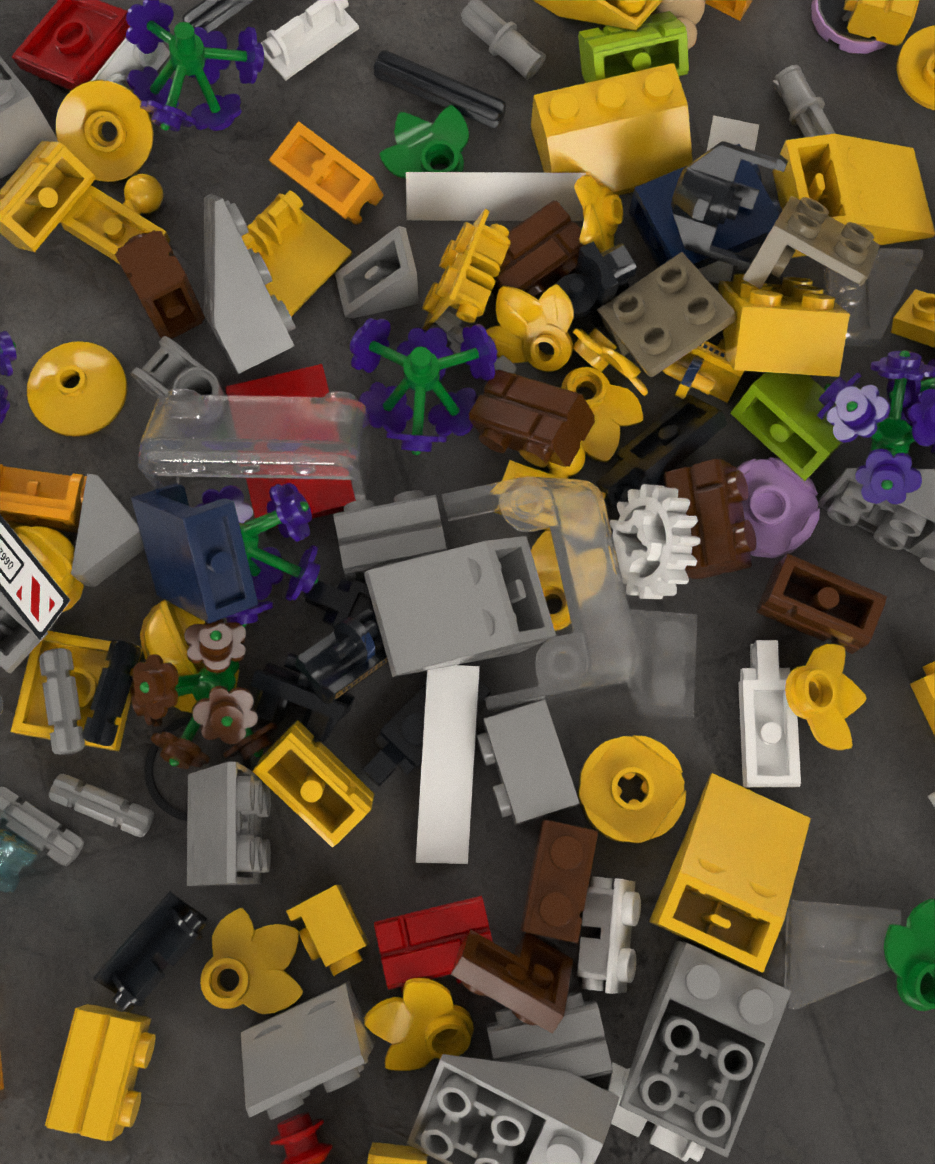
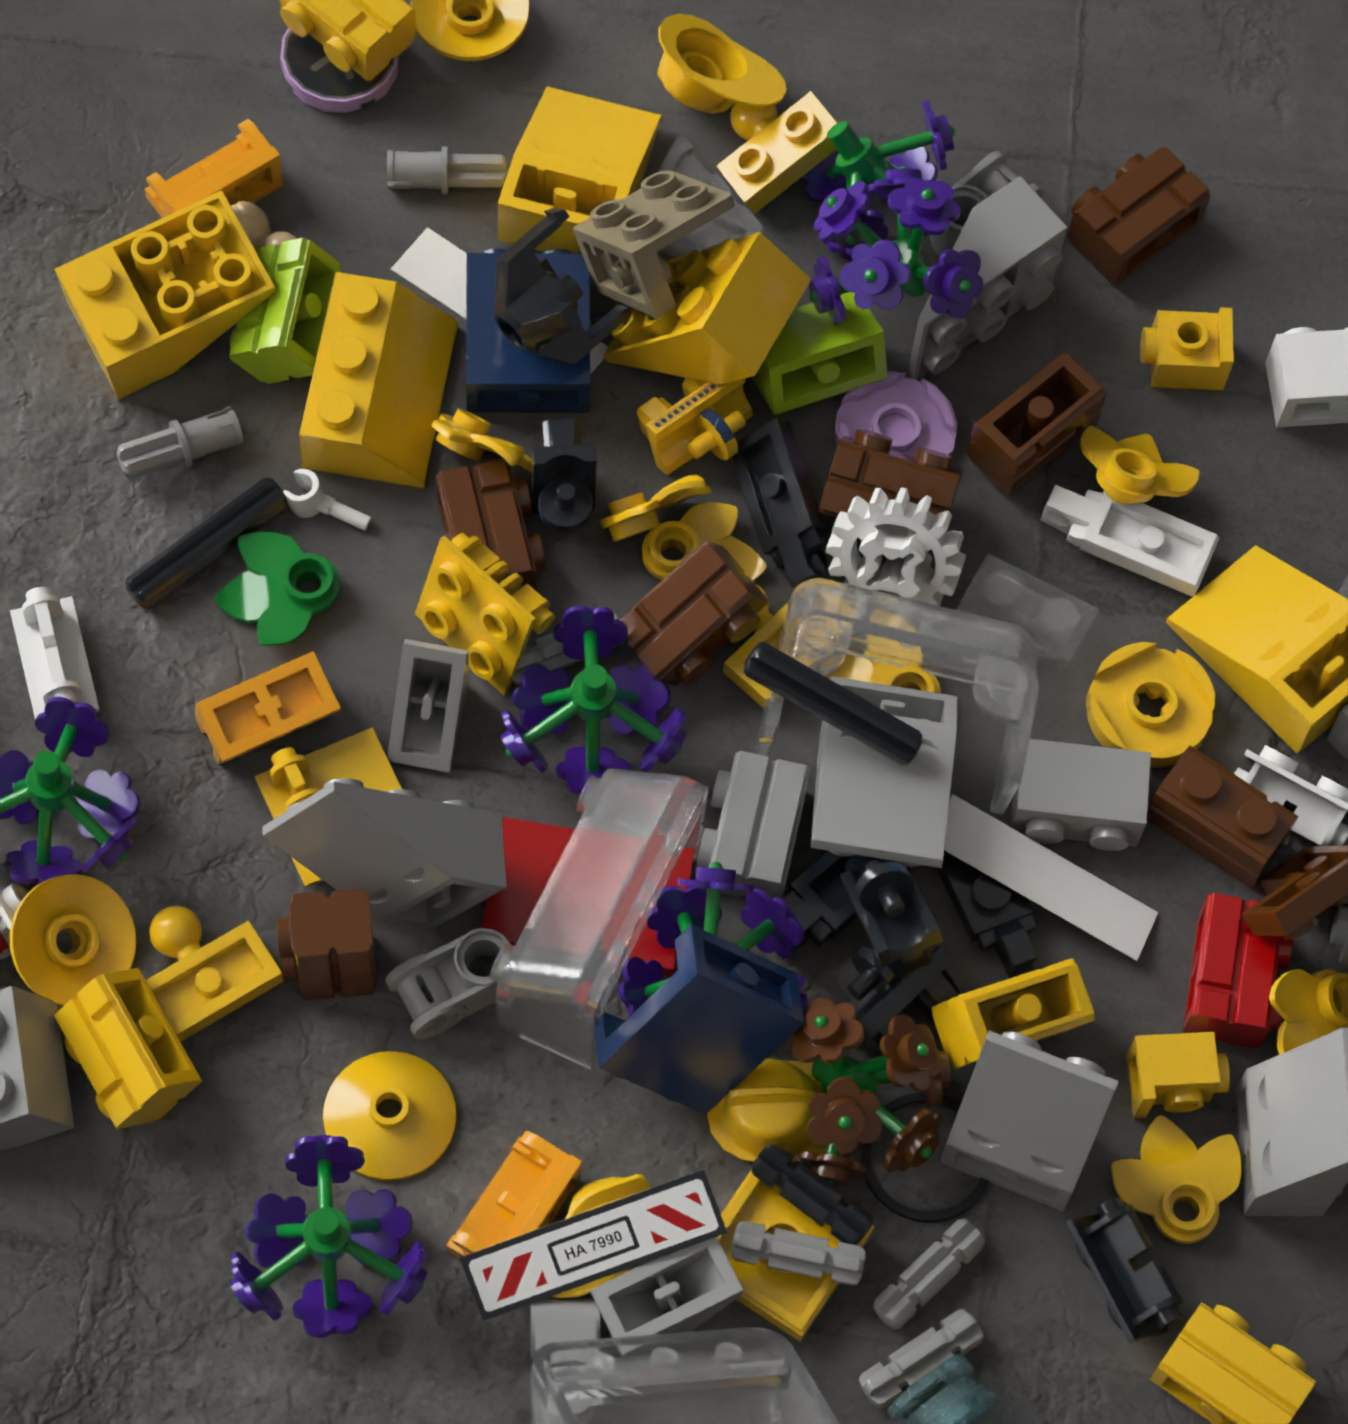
camera: 70 degrees left, 10 degrees down
(105, 535) = (601, 1132): light grey slope -> none
(476, 535) = (833, 703): none -> black axle
(504, 194) = (382, 543): white sticker -> none
(507, 142) = (316, 502): none -> white hand
(528, 321) = (573, 565): yellow plate -> none
(666, 315) = (650, 417): dark tan bracket -> none

